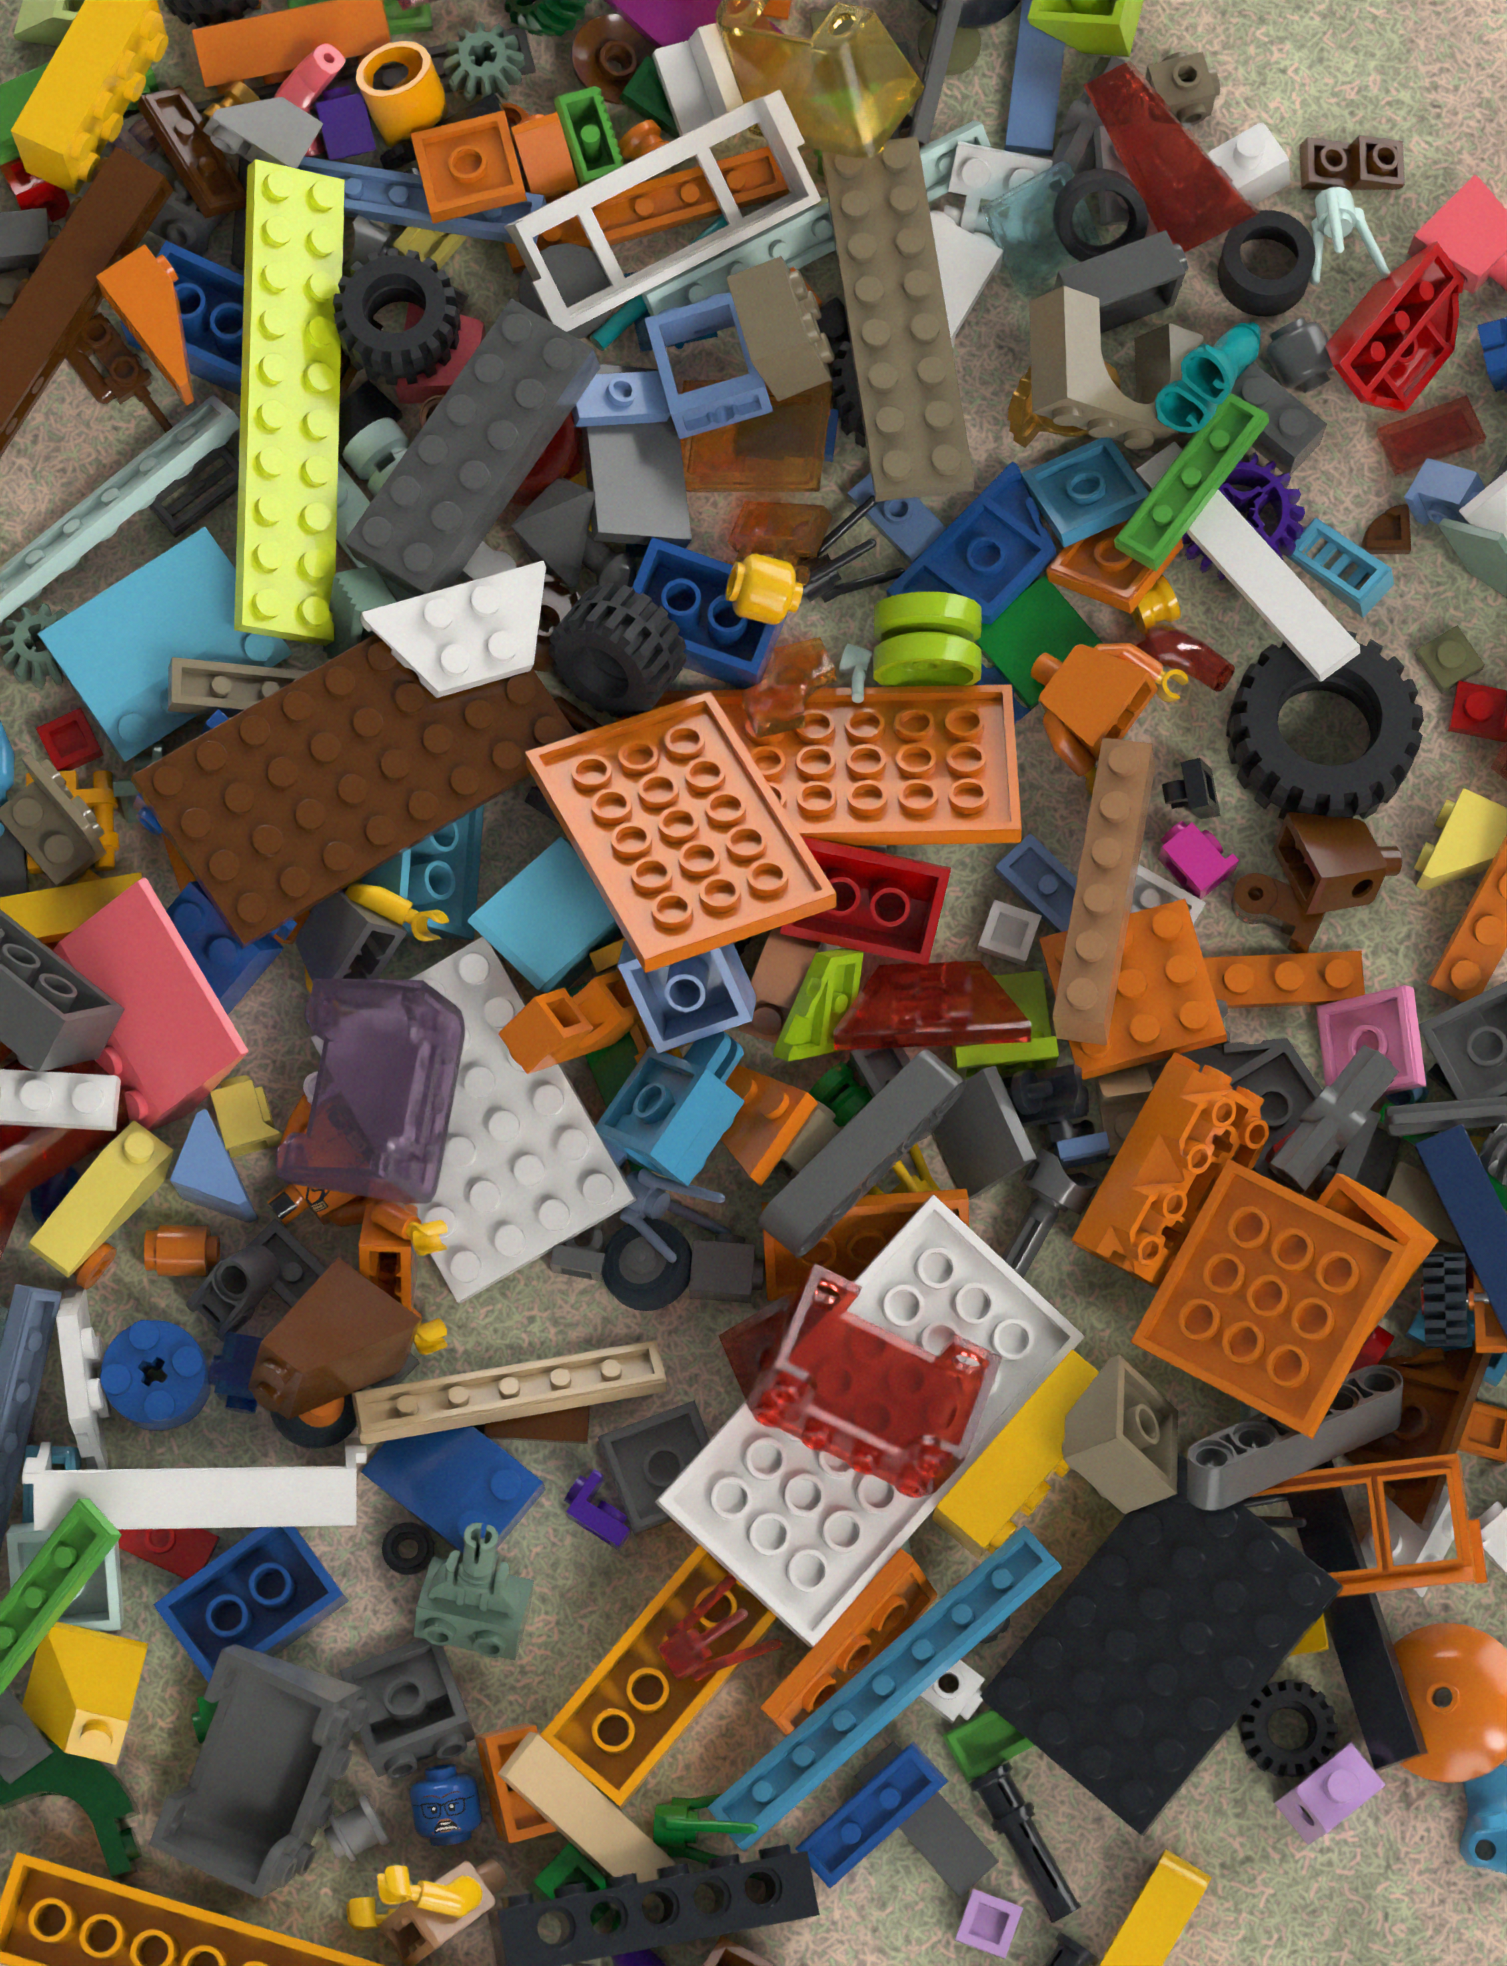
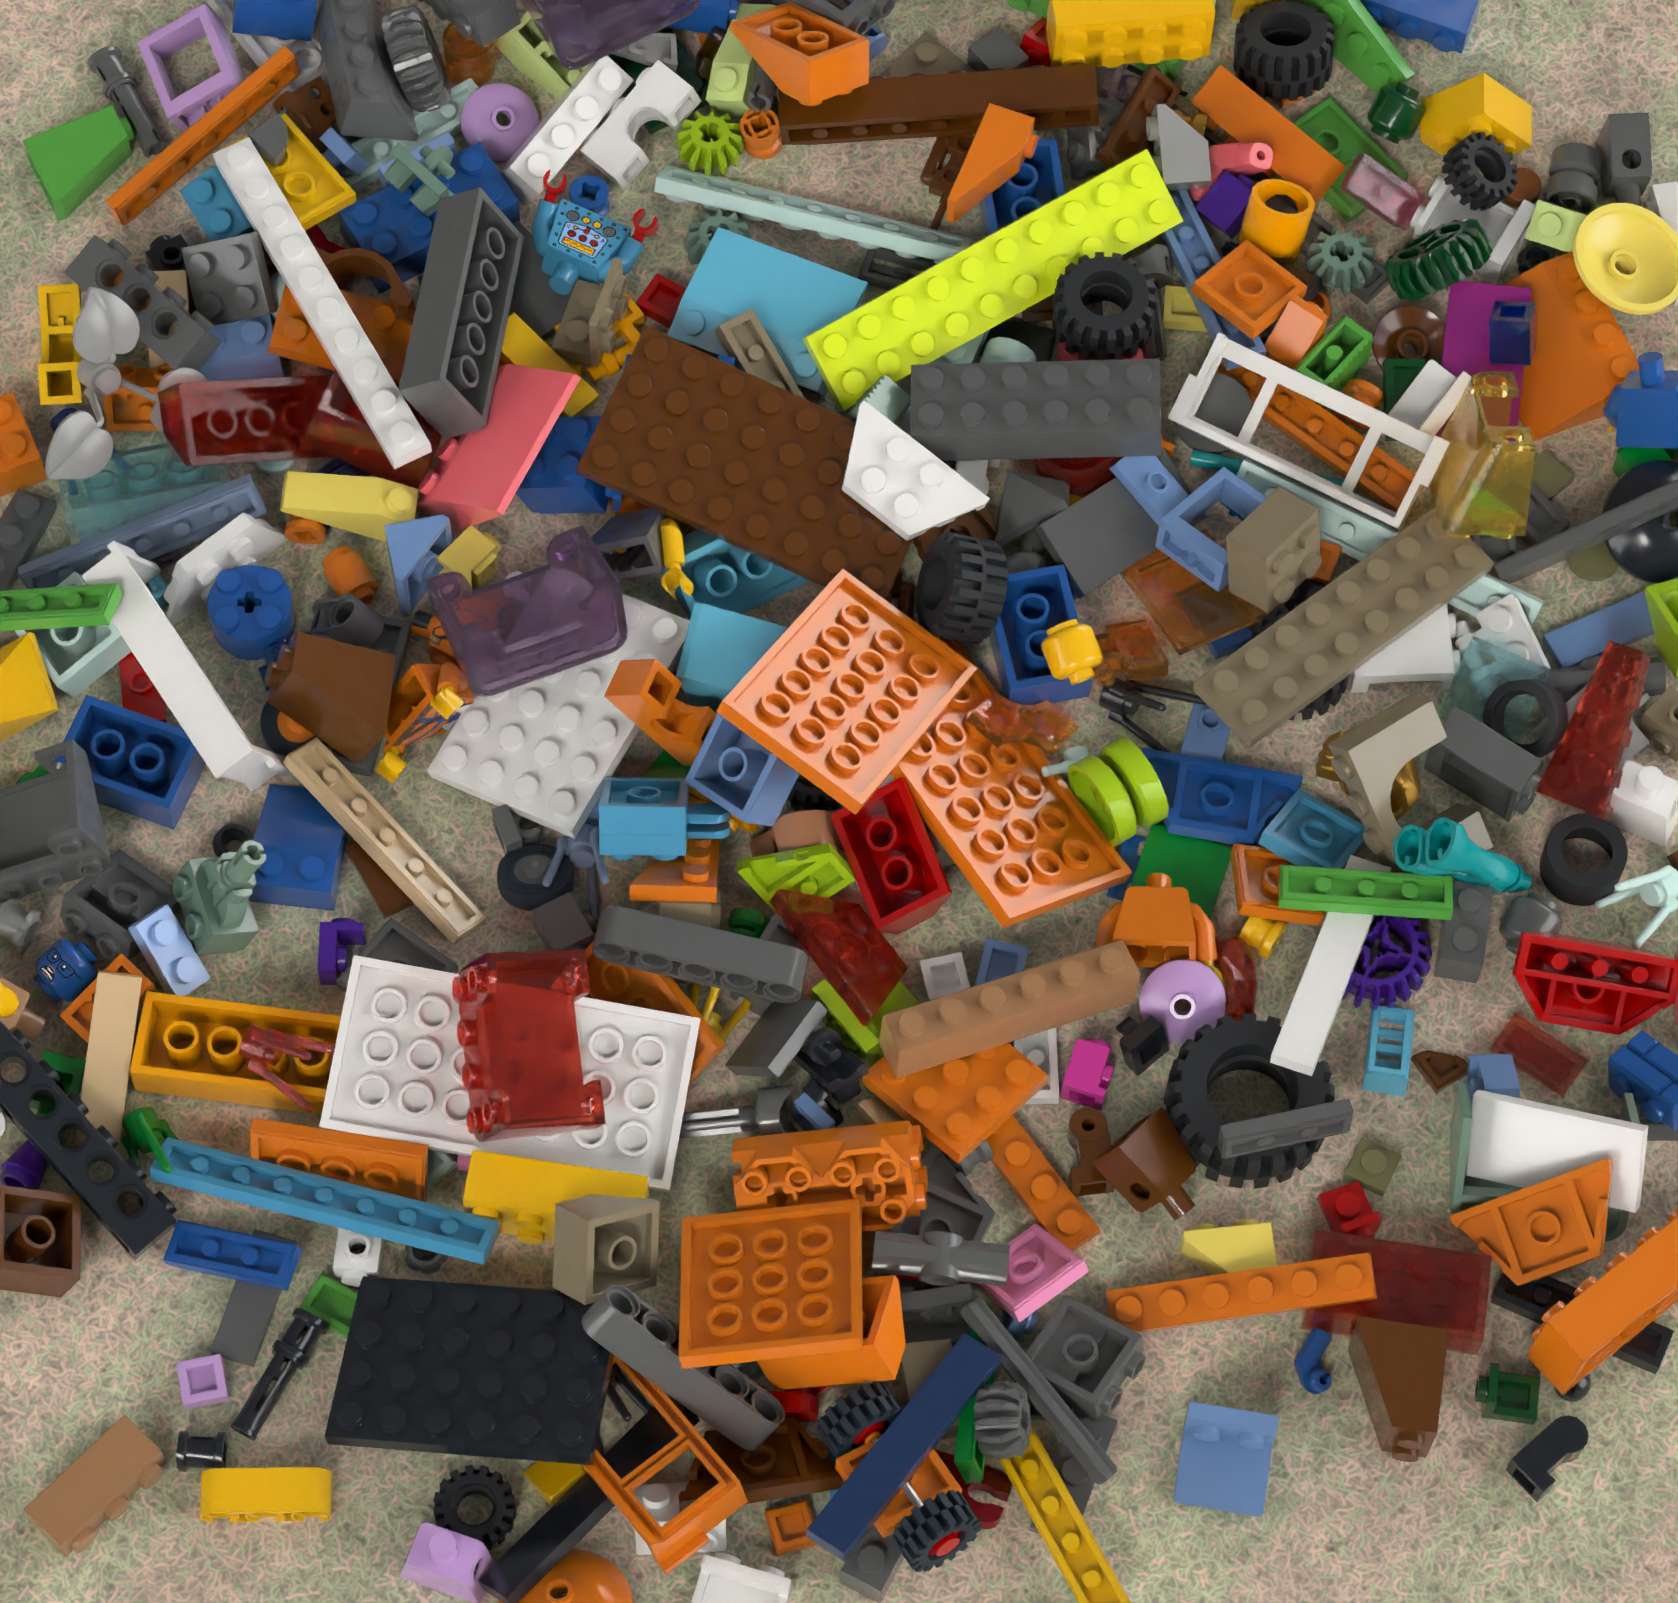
camera: 55 degrees right, 10 degrees down
(498, 1687) = (168, 952): none -> light blue plate
(1163, 720) = (1188, 981): none -> lavender dish
(1402, 711) = (1285, 1128): none -> dark grey tile

